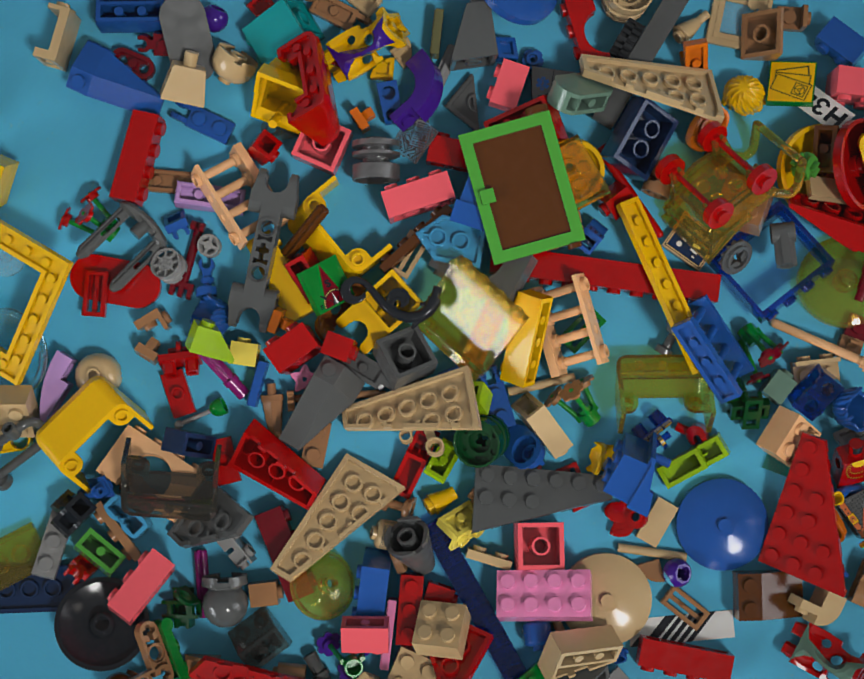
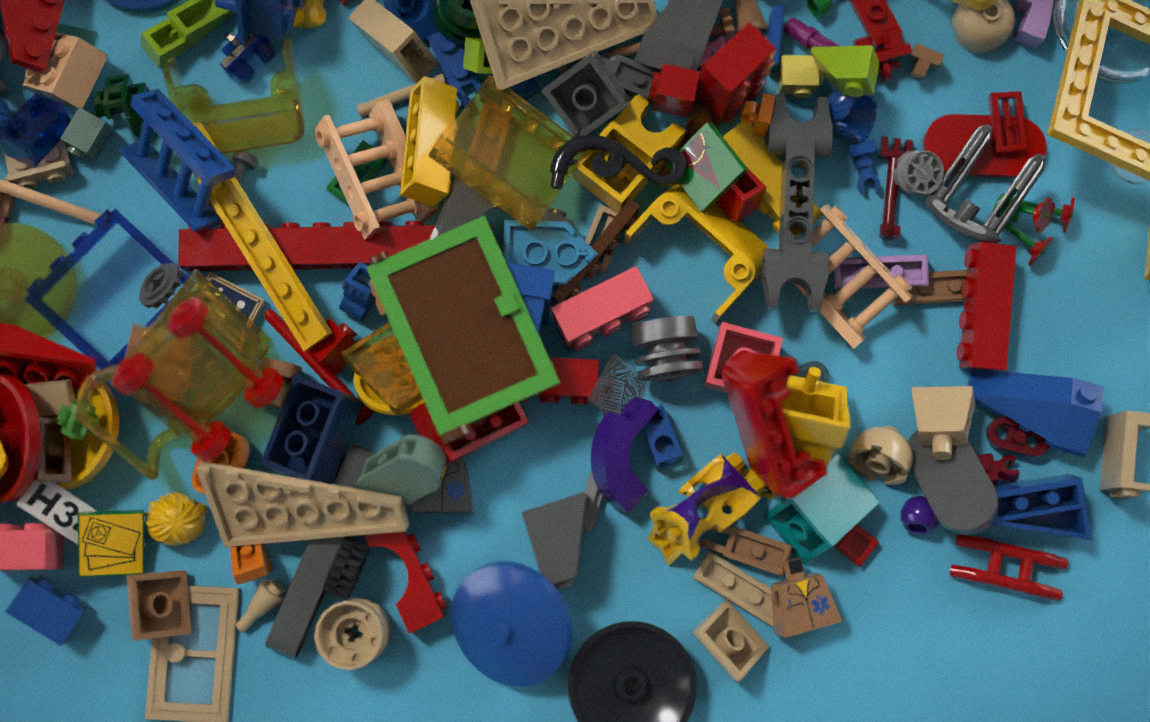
camera: 165 degrees right, 5 degrees down
(150, 320) = (921, 105): medium nougat bracket -> none
(175, 222) = (919, 231): blue tile -> none
(205, 123) = (902, 371): blue hinge -> none
(205, 244) = (872, 202): light grey wheel -> none
(264, 148) = (820, 346): red brick -> none
(305, 231) = (746, 235): reddish brown axle -> none
(363, 118) = (694, 407): orange tile -> none
(384, 70) = (673, 480): yellow tile -> none
(403, 54) = (650, 502): tan tile -> none
(436, 33) = (611, 540): olive tile -> none
(464, 104) = (558, 451): dark grey tile -> none
(506, 49) = (512, 533): blue plate -> none
(508, 86) = (501, 480): coral brick -> none
(536, 54) = (465, 526): blue plate -> none
(586, 412) = (357, 77): plant -> none
(692, 431) = (192, 61): red piece -> none
(751, 336) = (129, 195): plant -> none
(784, 238) = (97, 319): dark grey piece -> none
(796, 18) = (116, 640): medium nougat bracket -> none

